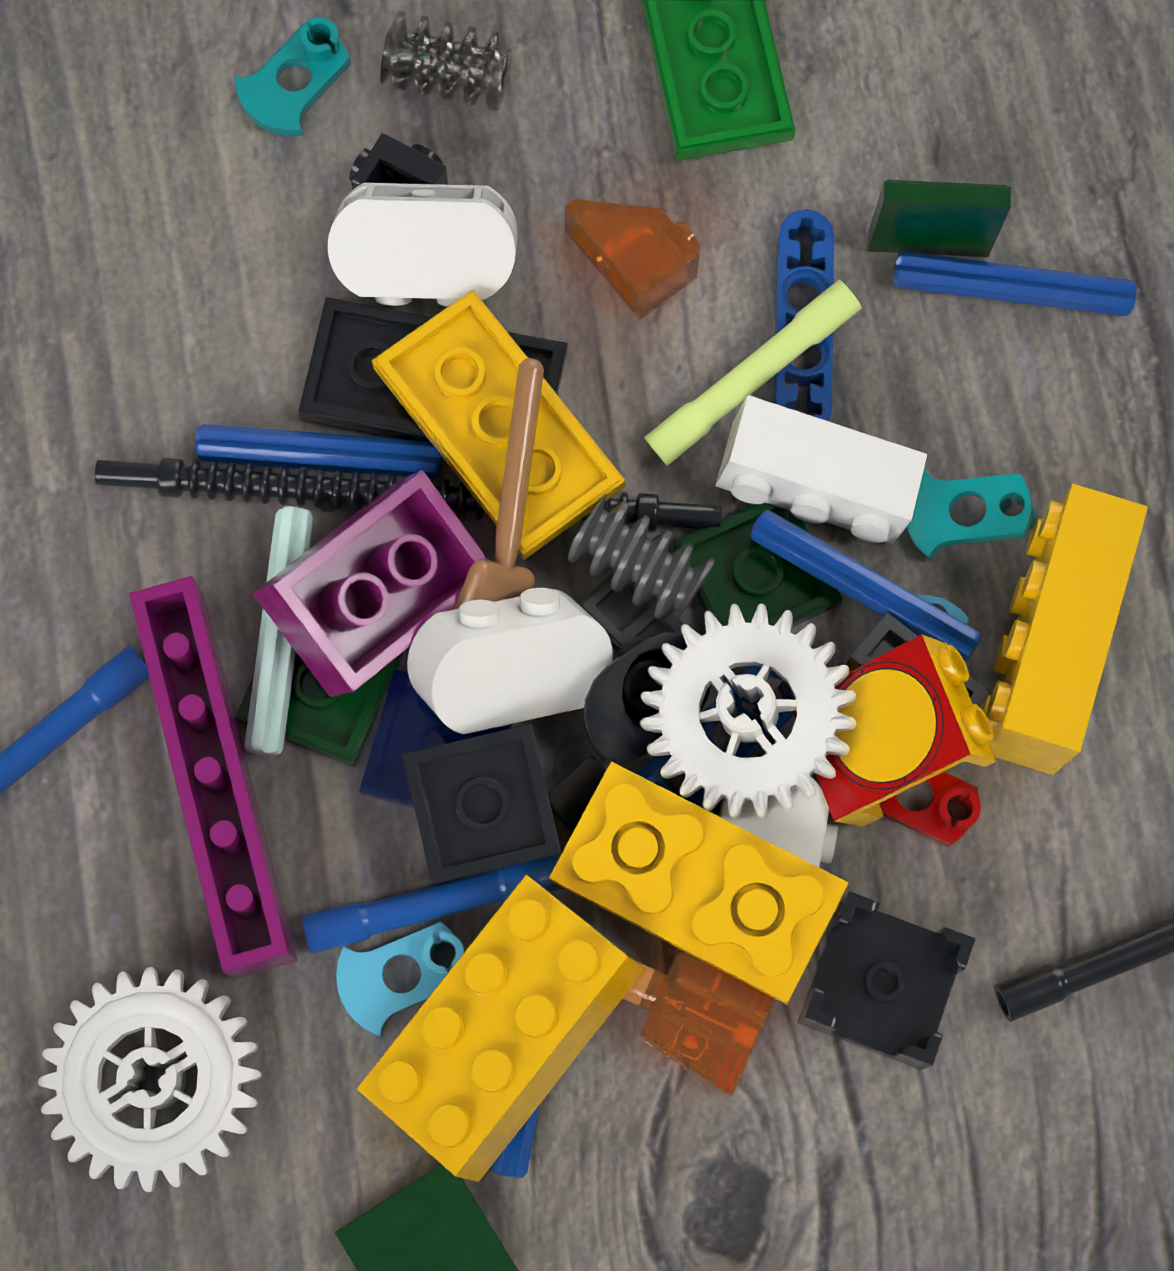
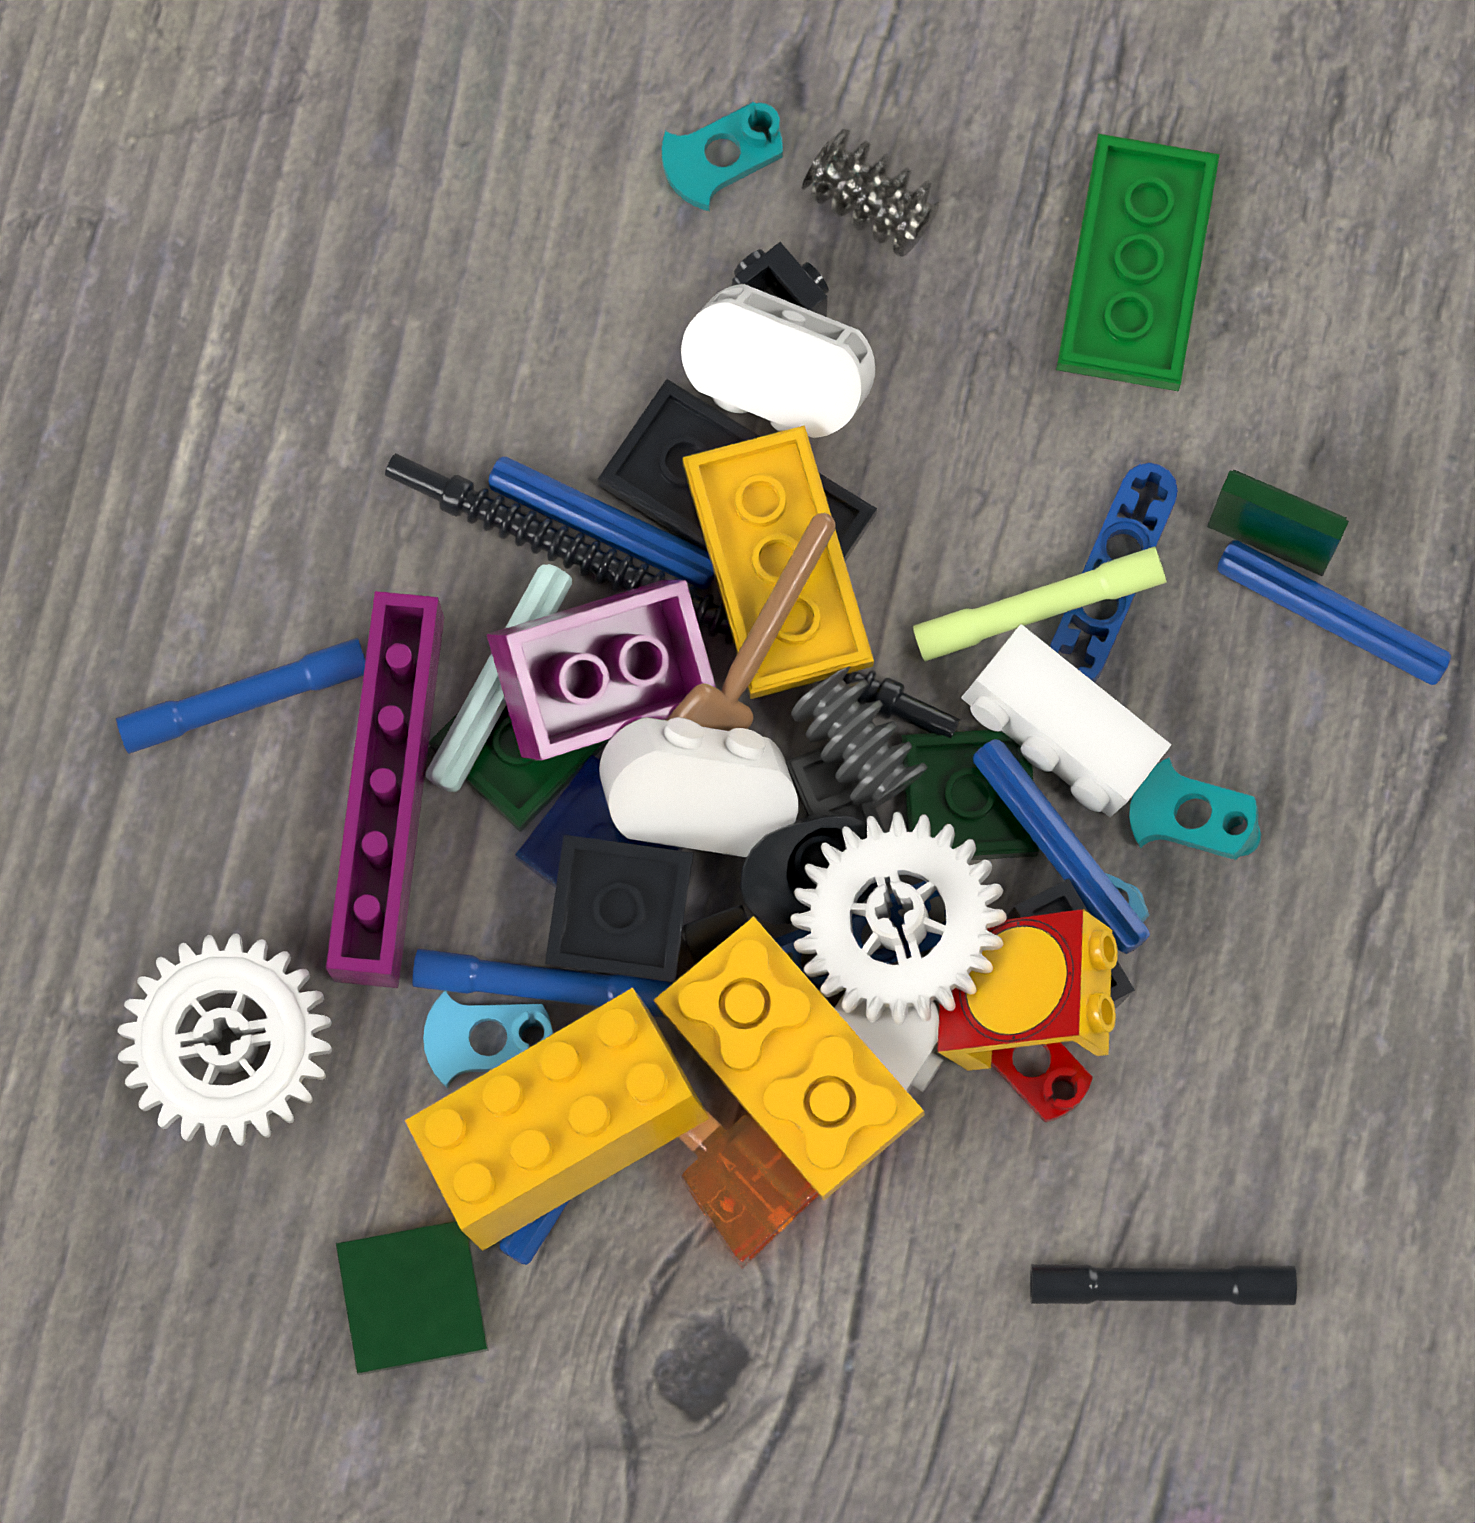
camera: 25 degrees right, 0 degrees up
(635, 250) = (979, 444): clear orange slope -> none
(884, 982) = (927, 1219): black panel -> none
(1062, 627) = (1236, 948): yellow brick -> none

